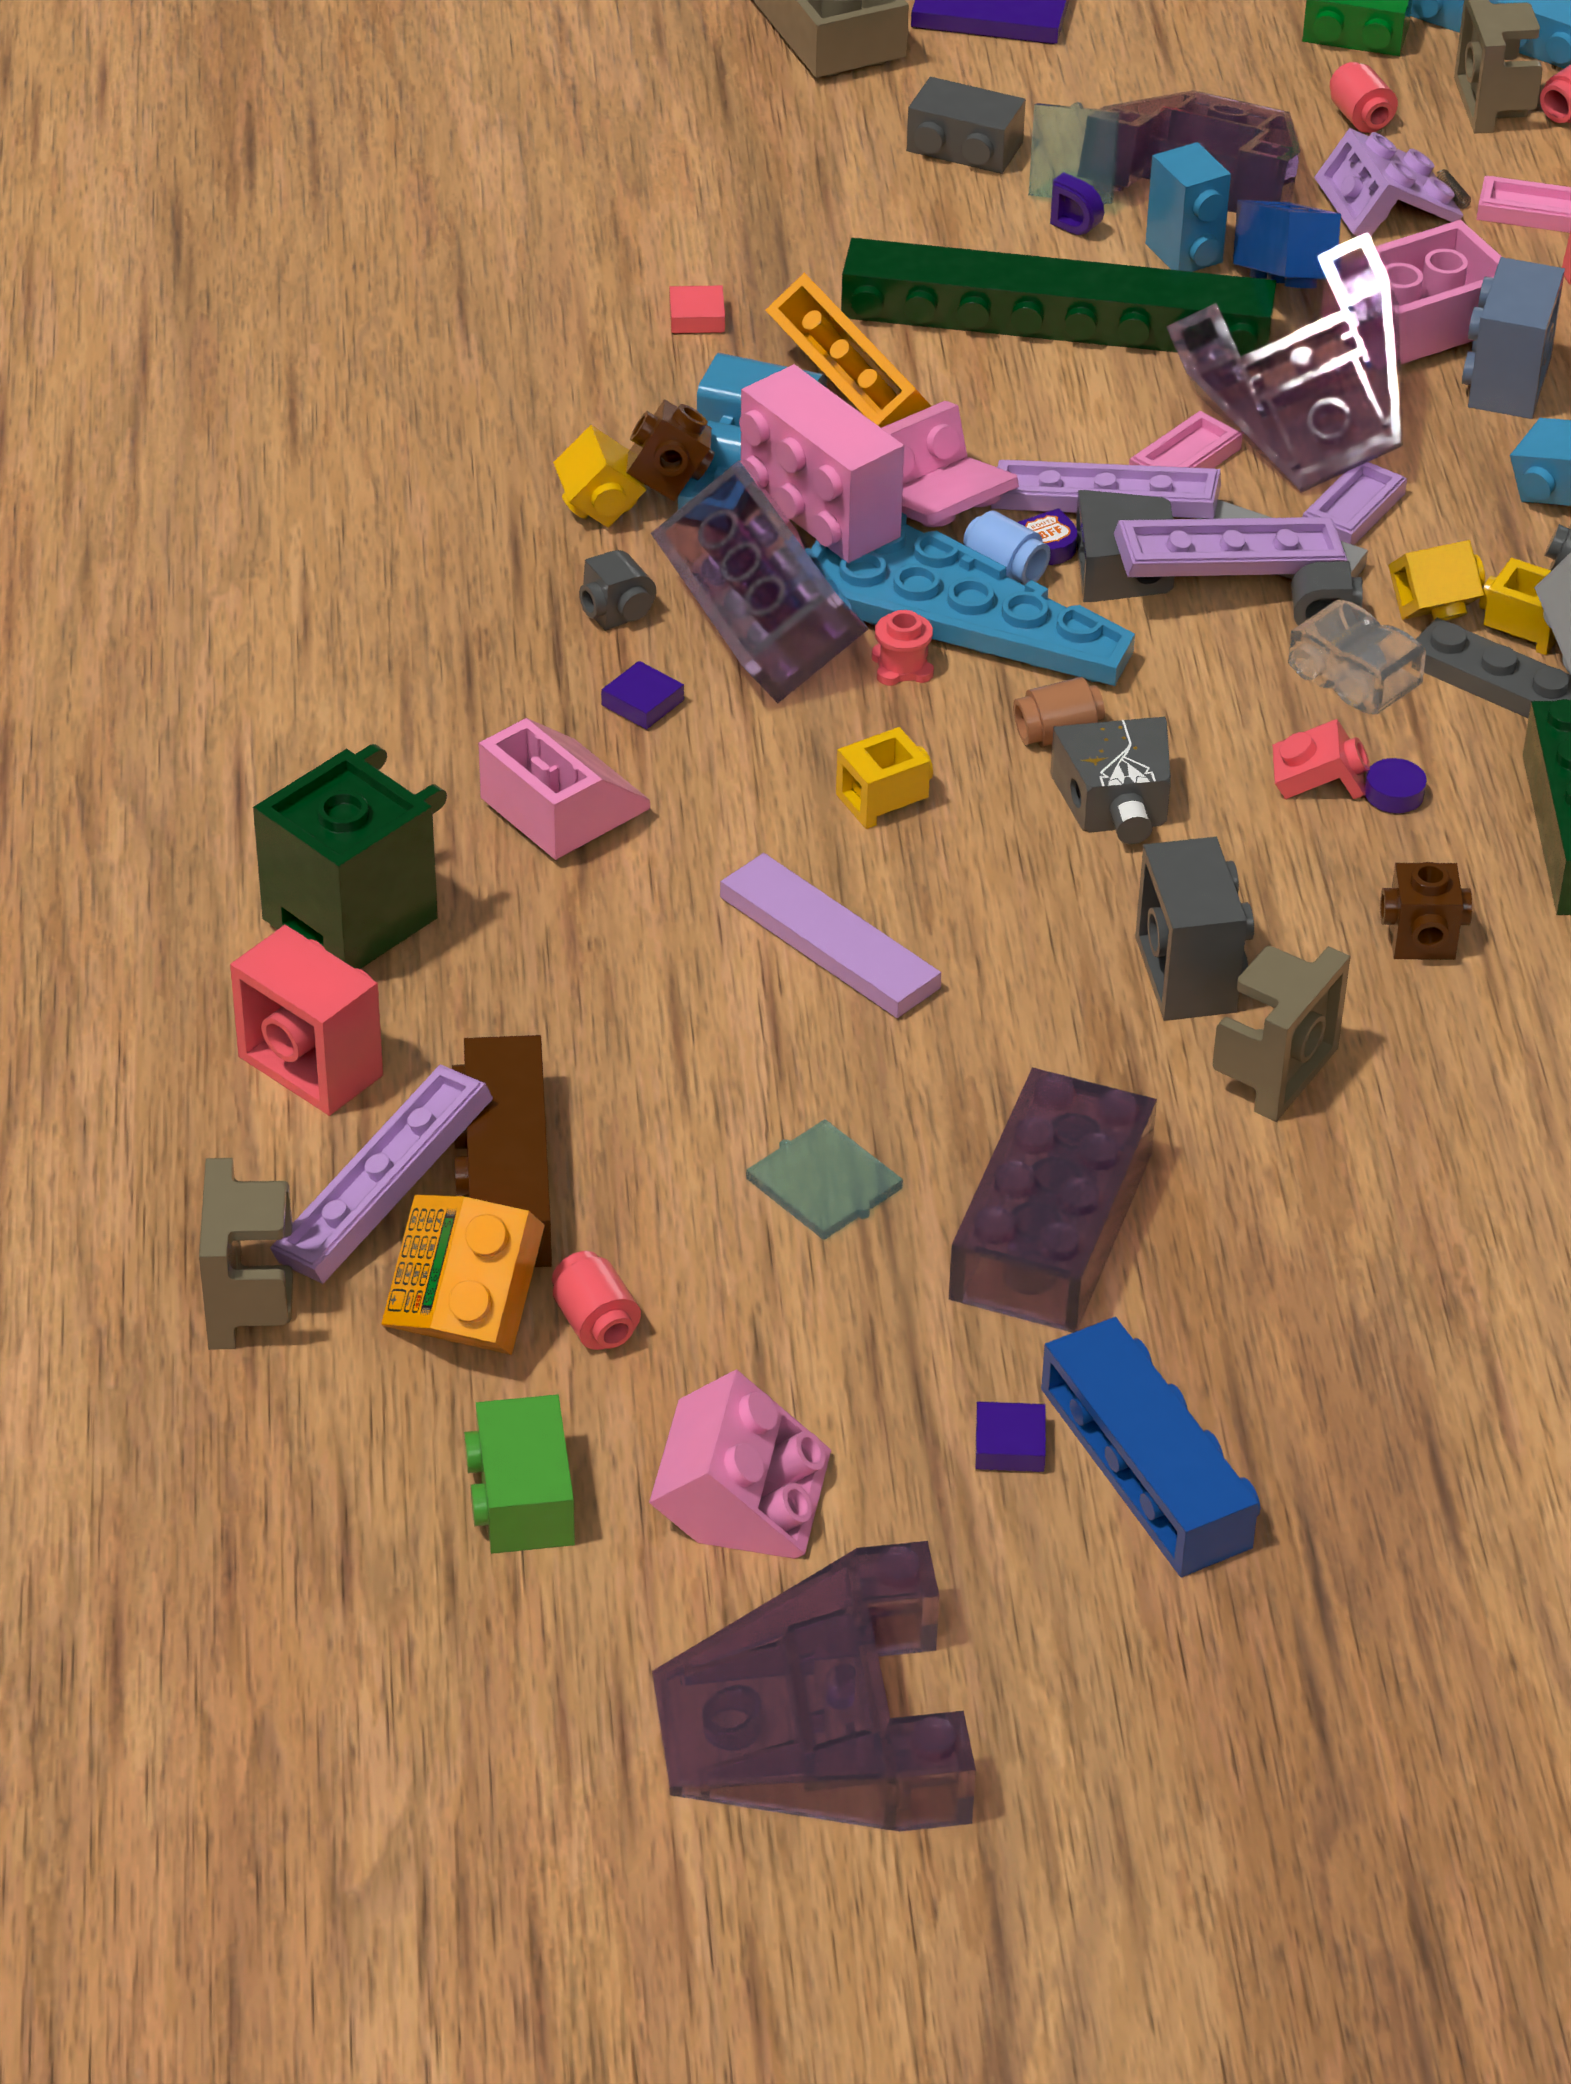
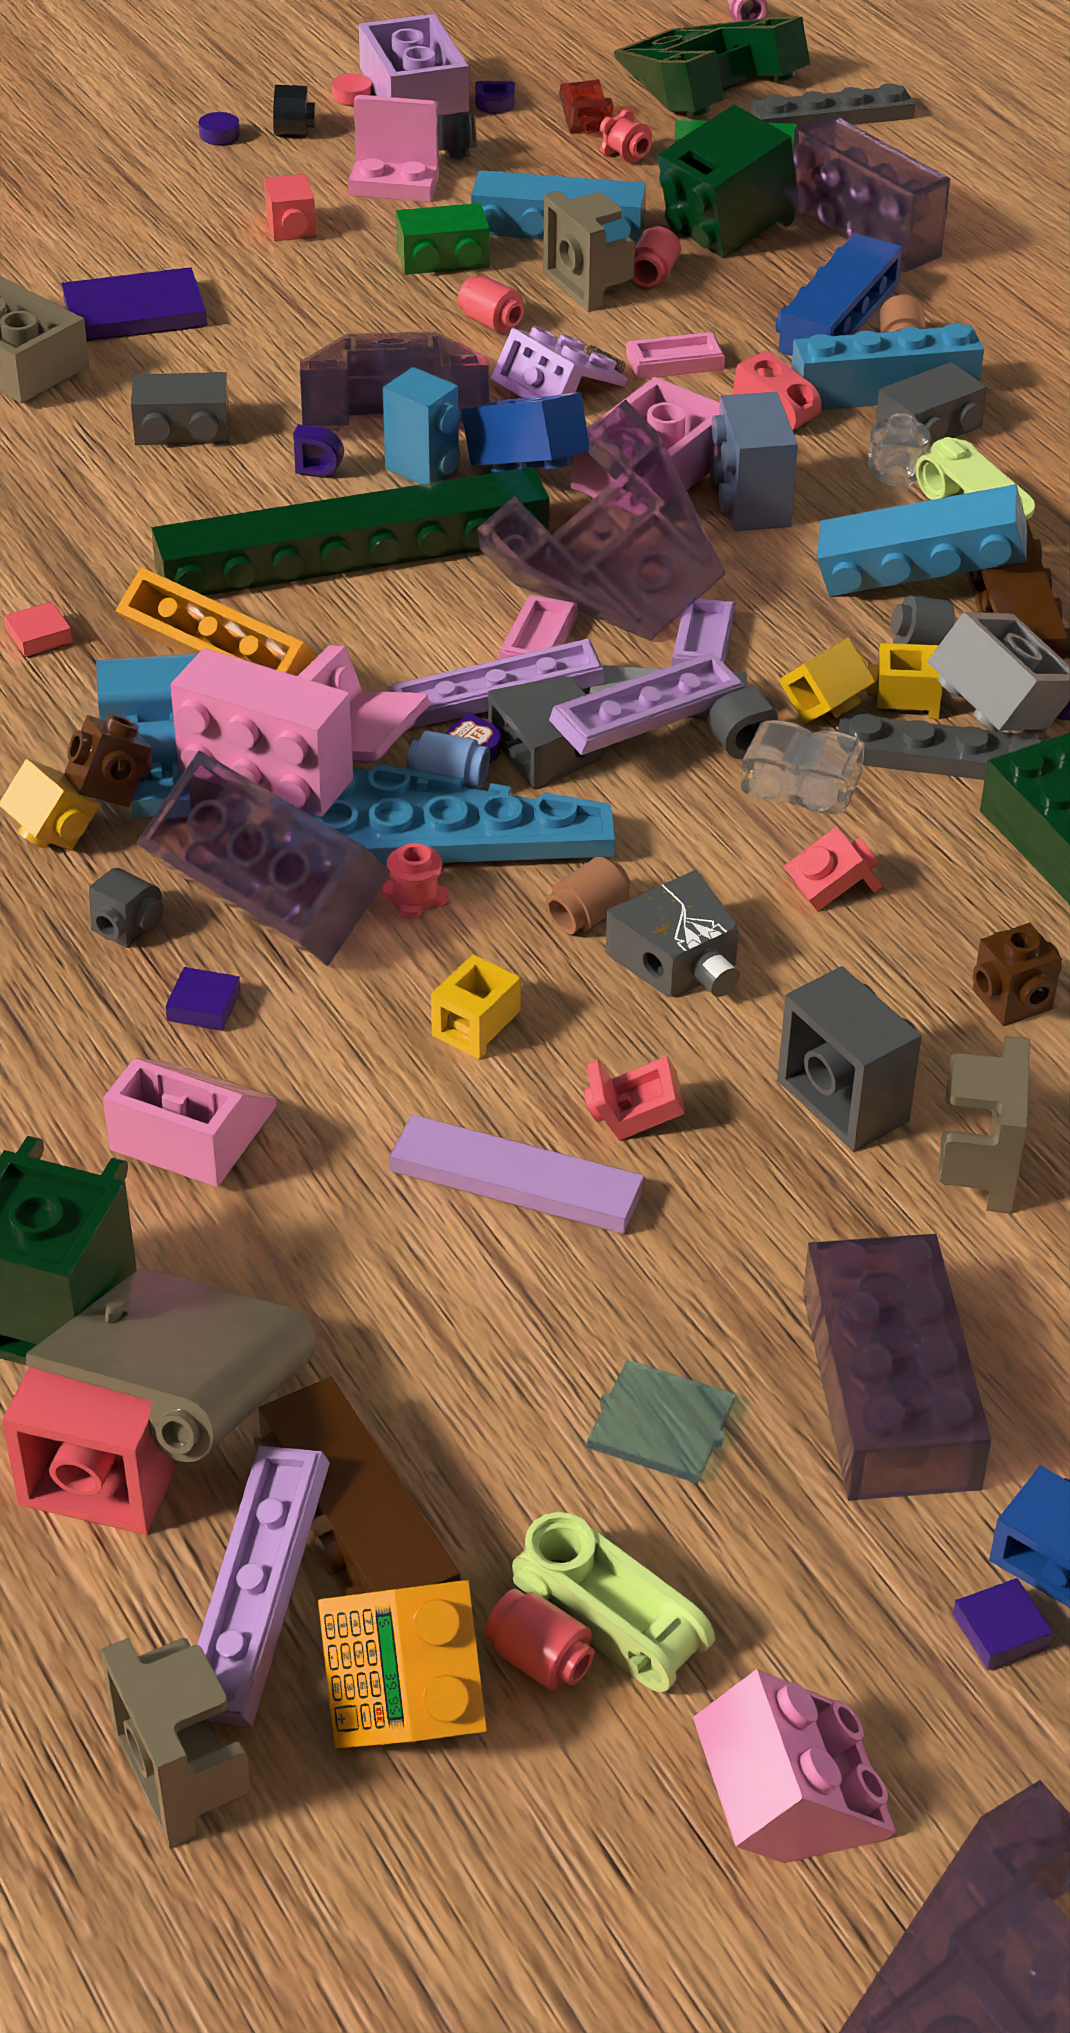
camera: 25 degrees left, 0 degrees up
(422, 973) = (187, 1349): none -> dark tan door
(523, 1474) = (587, 1865): bright green brick -> none
(674, 1290) = (628, 1608): none -> yellowish green piece
(975, 906) = (634, 1098): none -> coral bracket
(1074, 143) = (292, 397): clear light blue piece -> none
(1395, 785) = (904, 869): dark purple tile -> none

